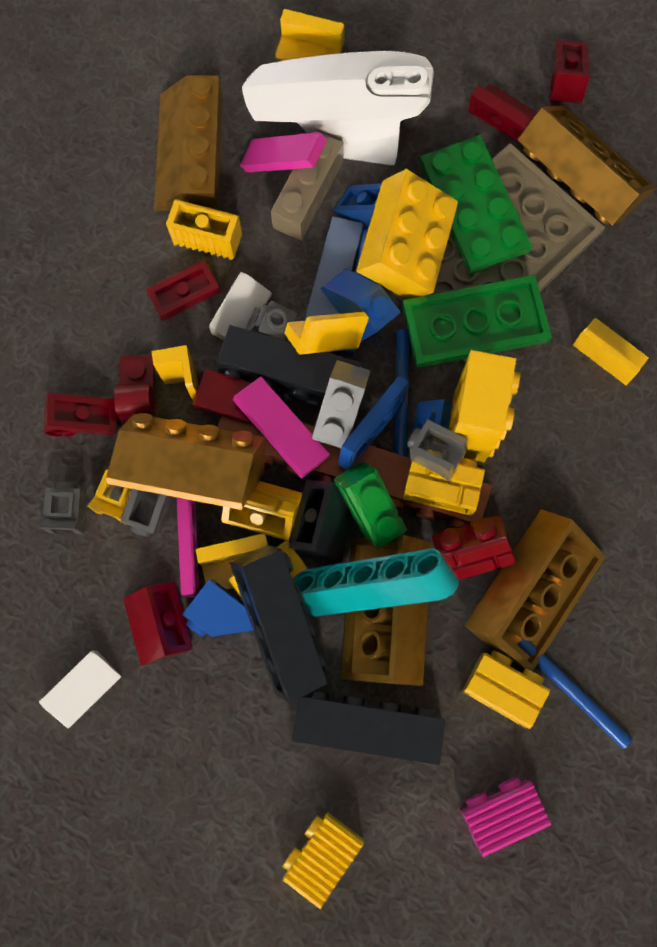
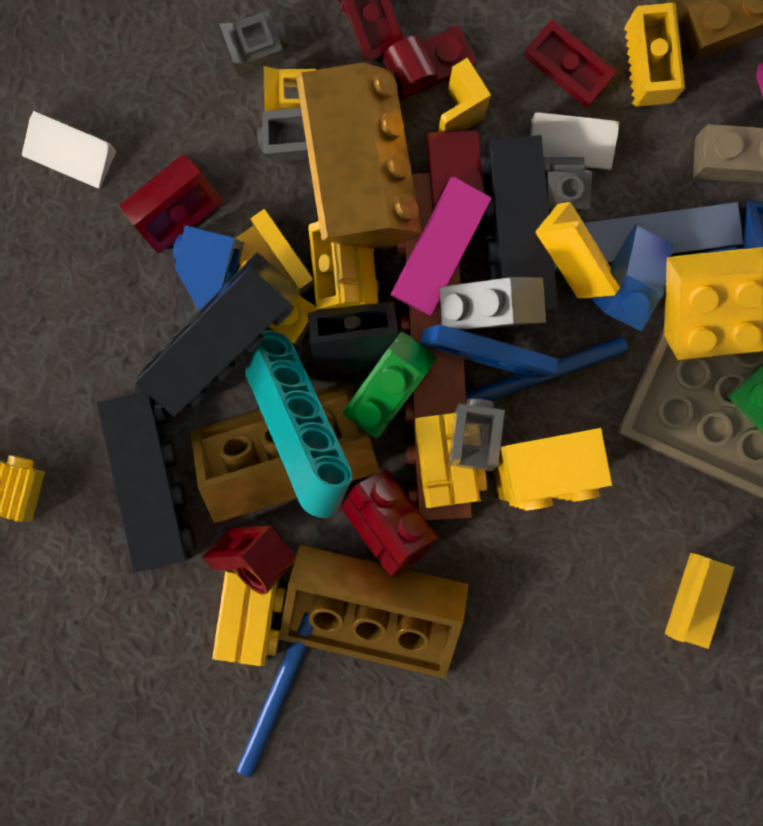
camera: 65 degrees right, 10 degrees up
(187, 544) = (269, 198): dark pink tile -> none
(436, 411) = (528, 419): blue plate -> none
(460, 661) = (253, 554): none -> dark red plate
(476, 319) = (667, 425): green plate -> none
(504, 815) = (111, 663): dark pink brick -> none

